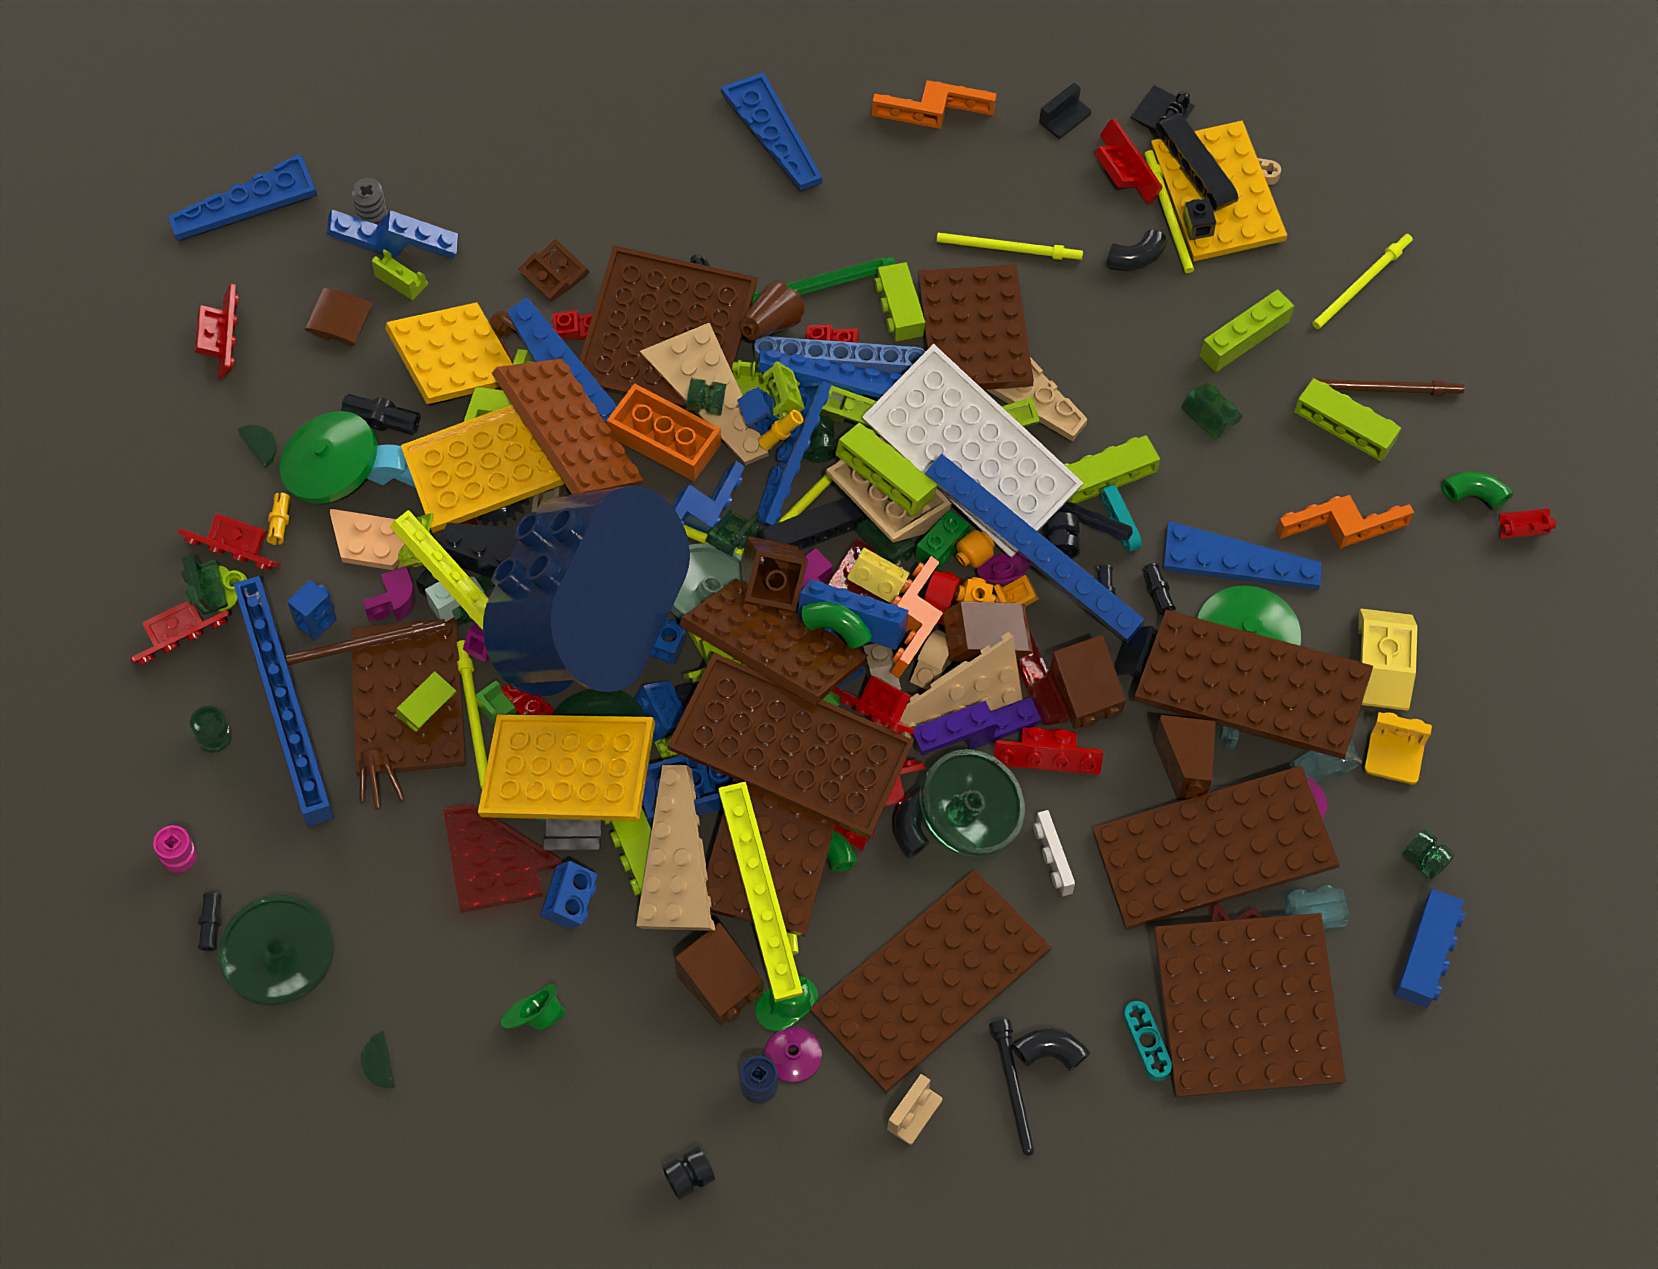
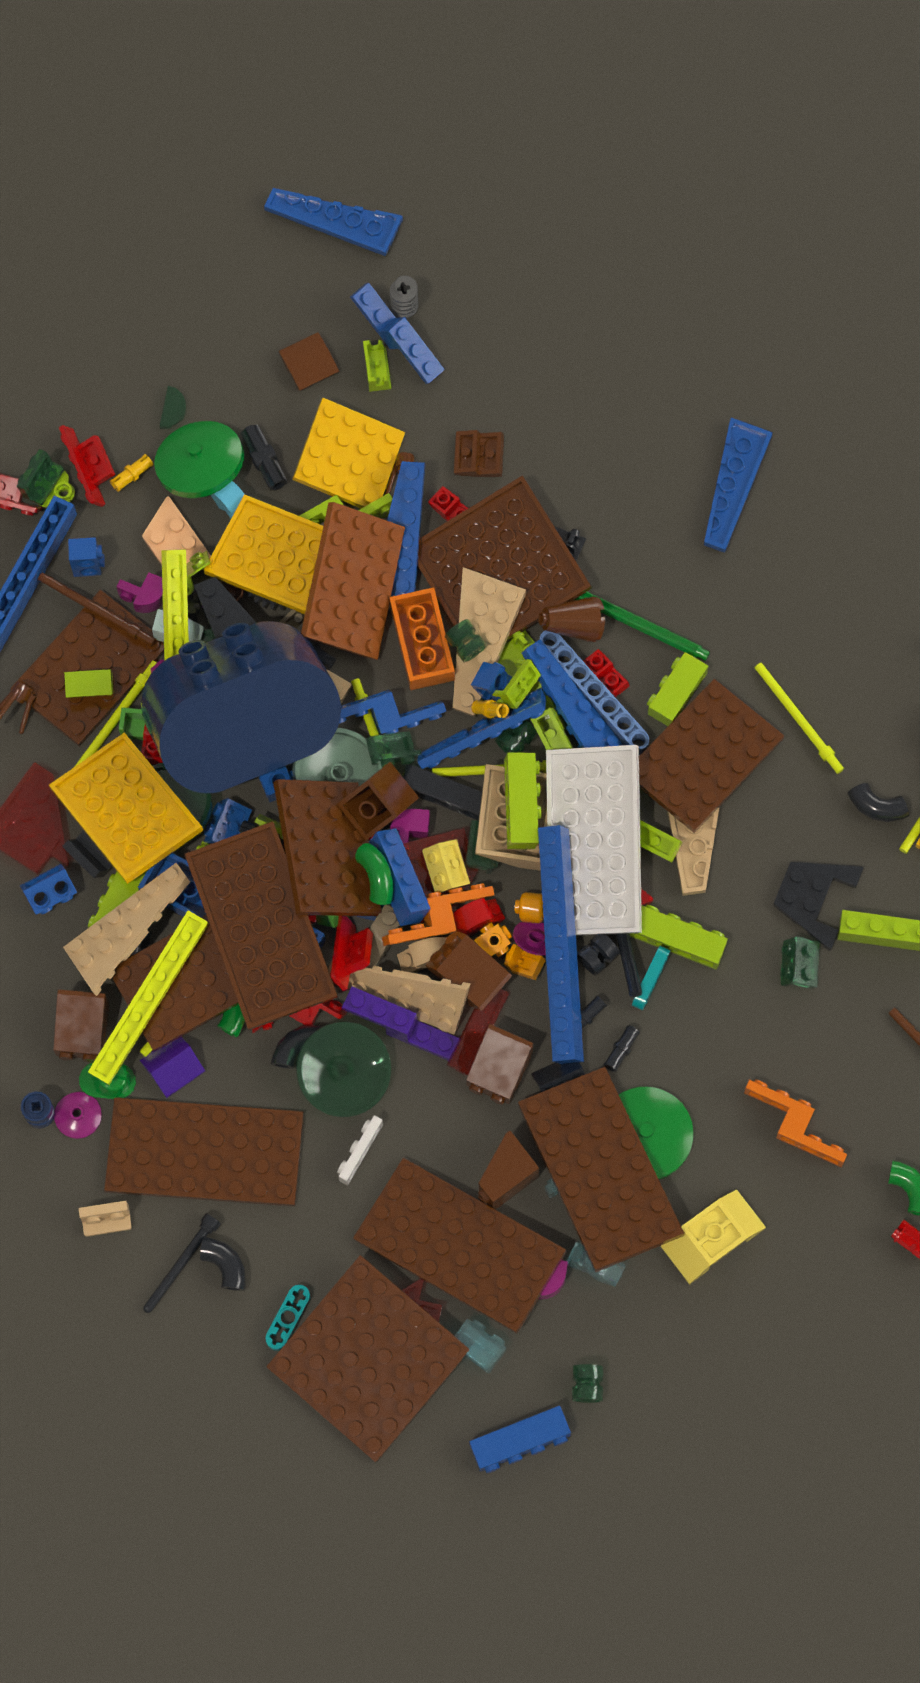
camera: 50 degrees right, 10 degrees up
(215, 331) = (221, 301): red bracket -> none
(829, 937) = (173, 1066): none -> dark purple slope
(933, 106) = (864, 564): orange bracket -> none
(942, 540) = (513, 882): green brick -> none
(1049, 751) = (431, 1082): red bracket -> none
(1156, 360) = (805, 891): none -> black wing
(1215, 555) = (687, 1064): blue wing -> none
(1347, 419) = (882, 1058): lime brick -> none
(1396, 748) = (648, 1300): yellow bracket -> none

